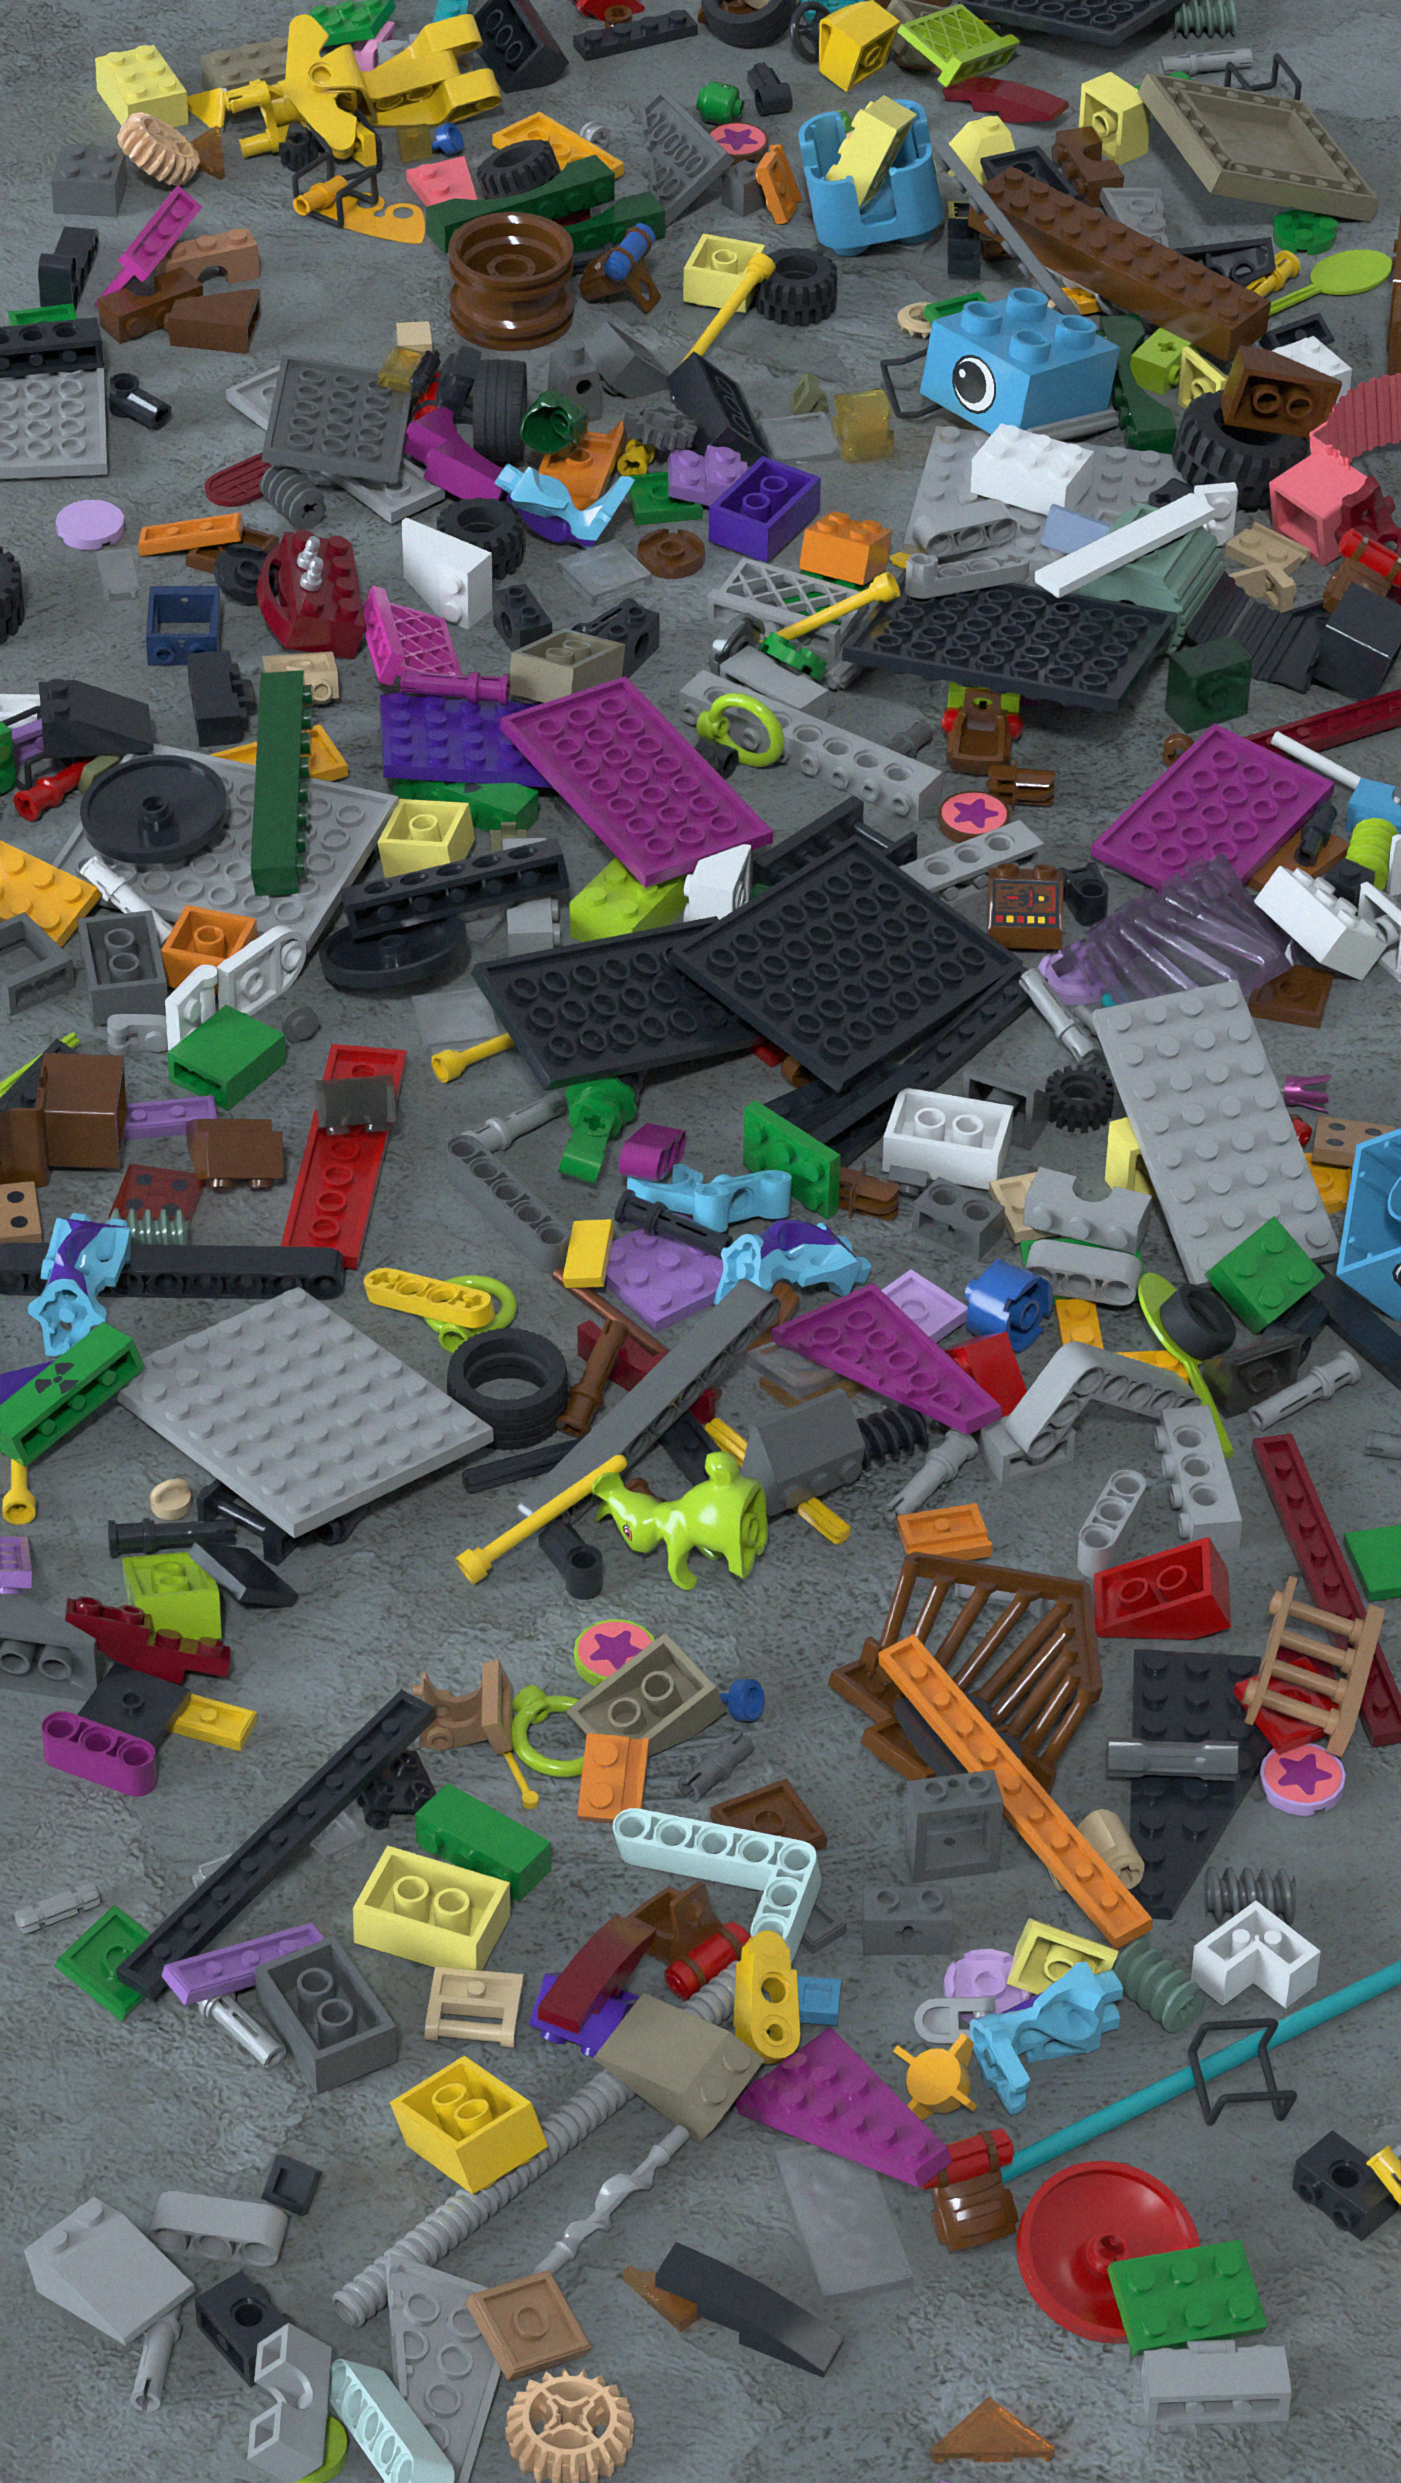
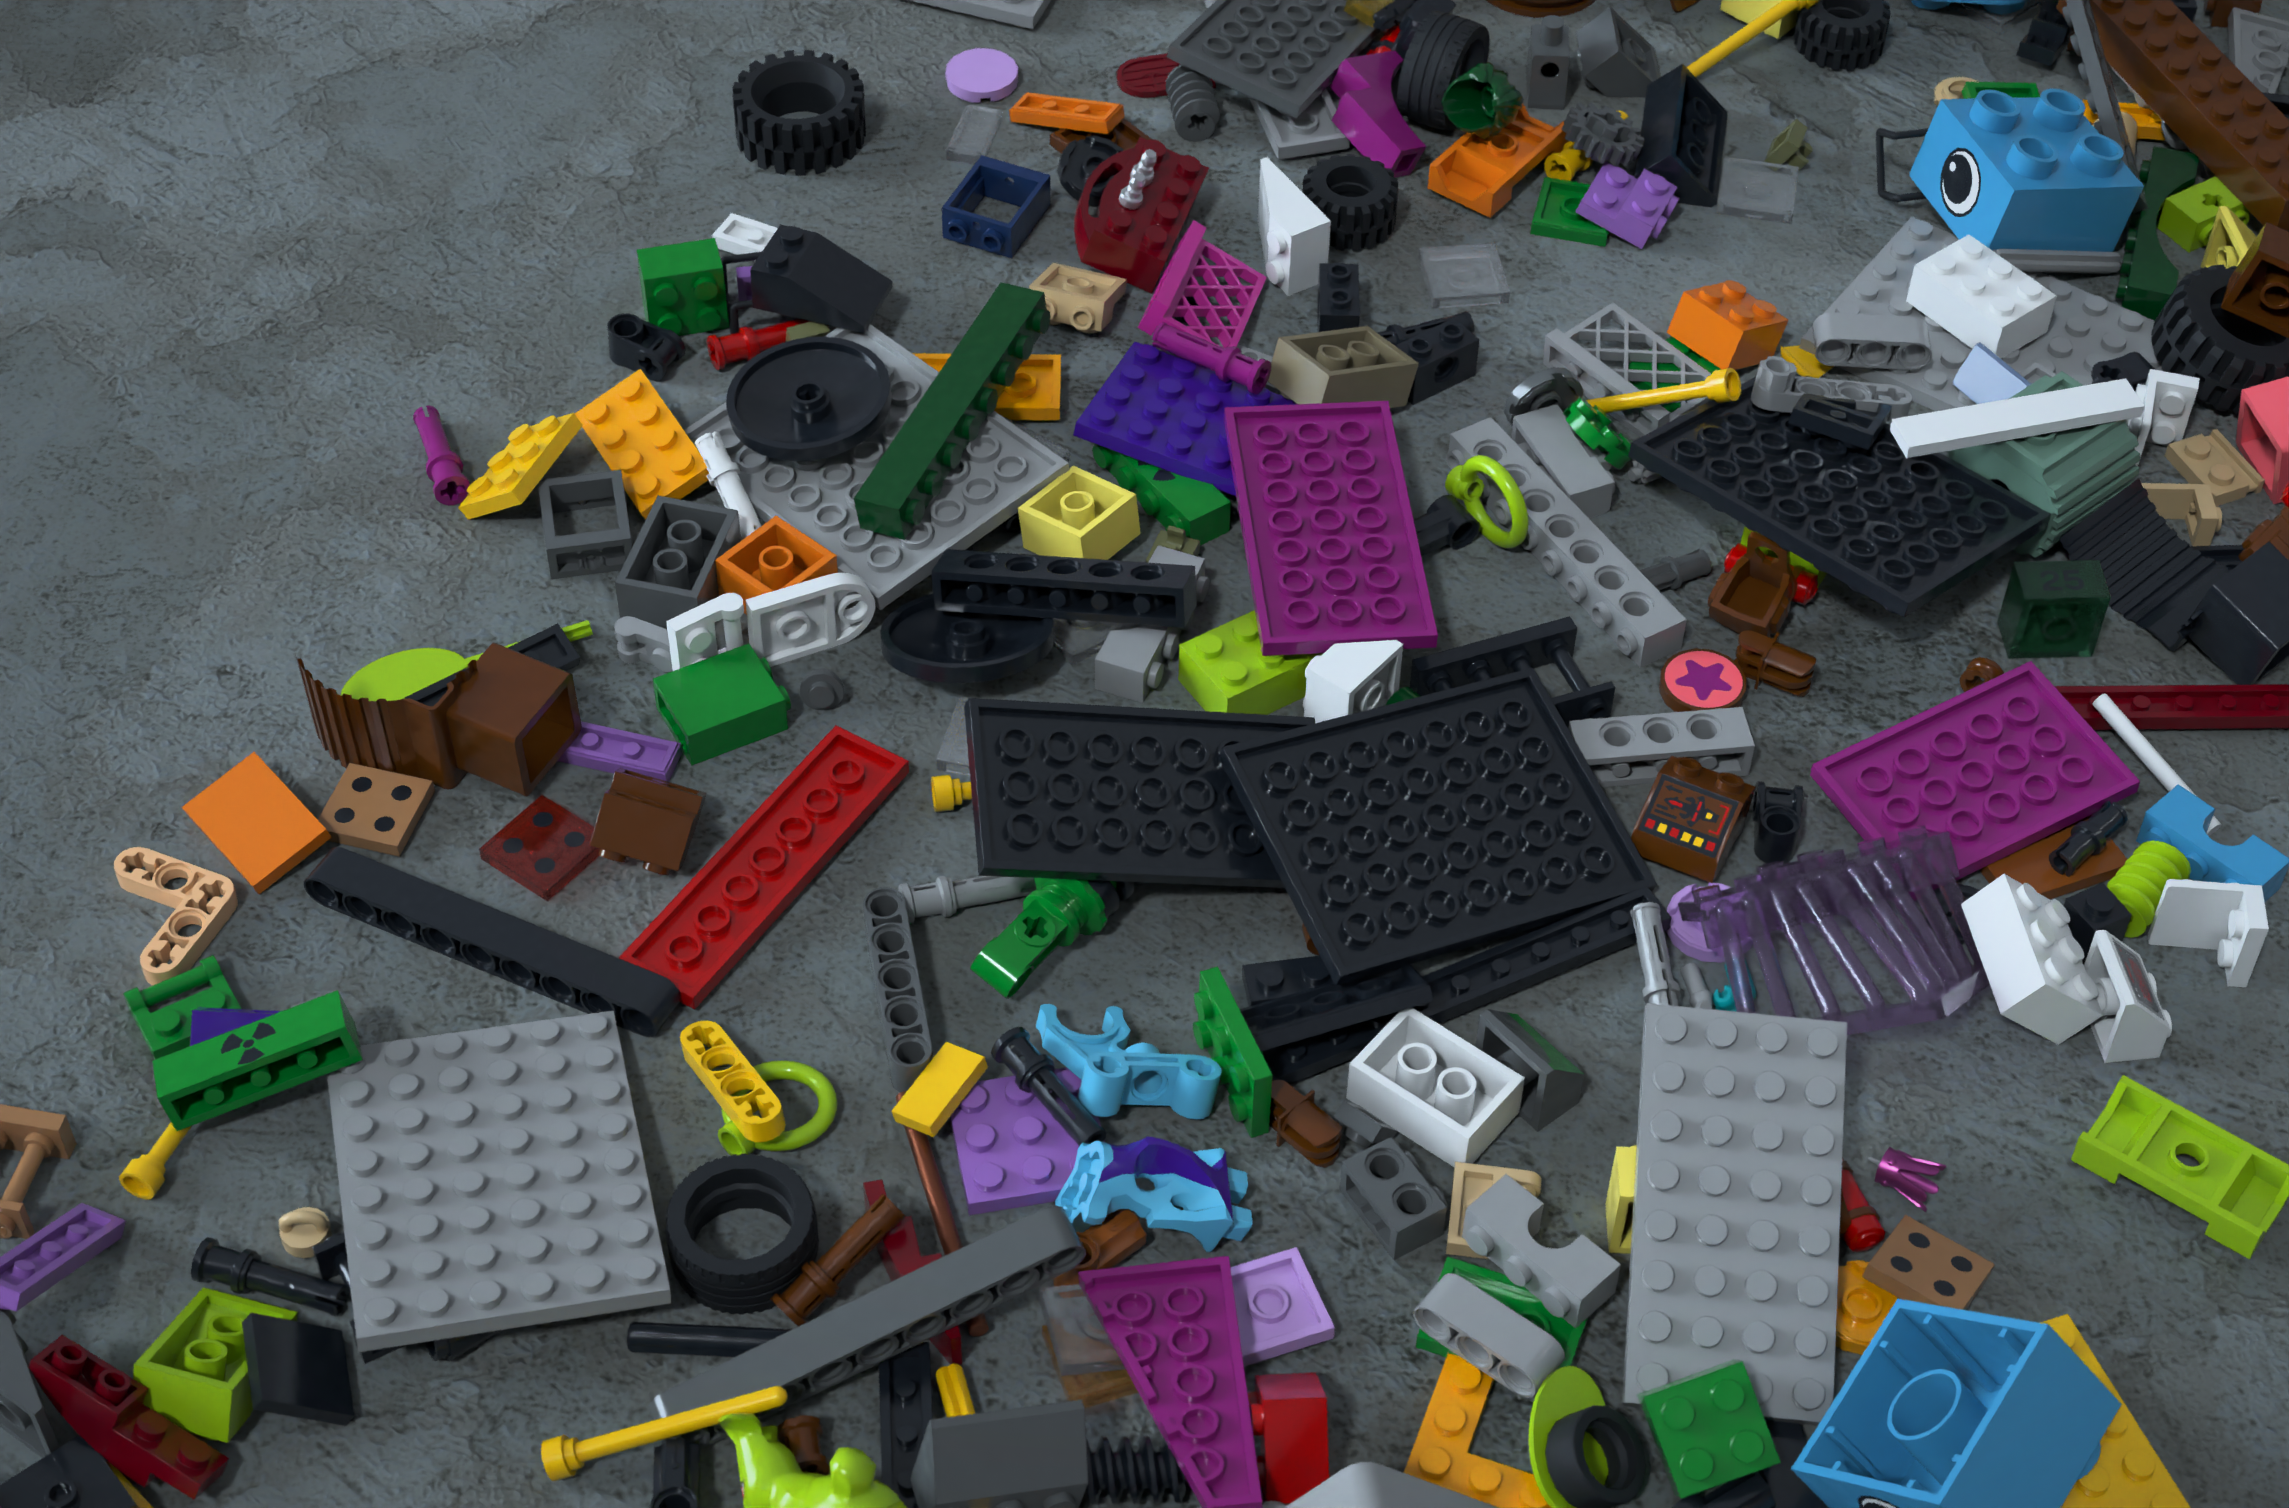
camera: 25 degrees right, 5 degrees up
(78, 1277) = (380, 889): medium azure hips -> none
(157, 1231) = (499, 886): sand green piece -> none
(214, 692) = (971, 286): black piece -> none
(355, 1103) = (799, 809): clear smoke slope -> none
(549, 508) = (1430, 187): medium azure hips -> none
(652, 1152) = (1086, 984): magenta beam -> none
(671, 554) = (1546, 275): reddish brown tile -> none
(764, 509) = (1666, 254): dark purple brick -> none
(863, 424) = (1825, 192): clear yellow brick -> none
(982, 587) = (1839, 420): none -> black wing
(1009, 1302) = (1376, 1345): blue brick -> none
(1080, 1084) = (1600, 1097): black tyre -> none
(1294, 997) = (1964, 1043): reddish brown tile -> none

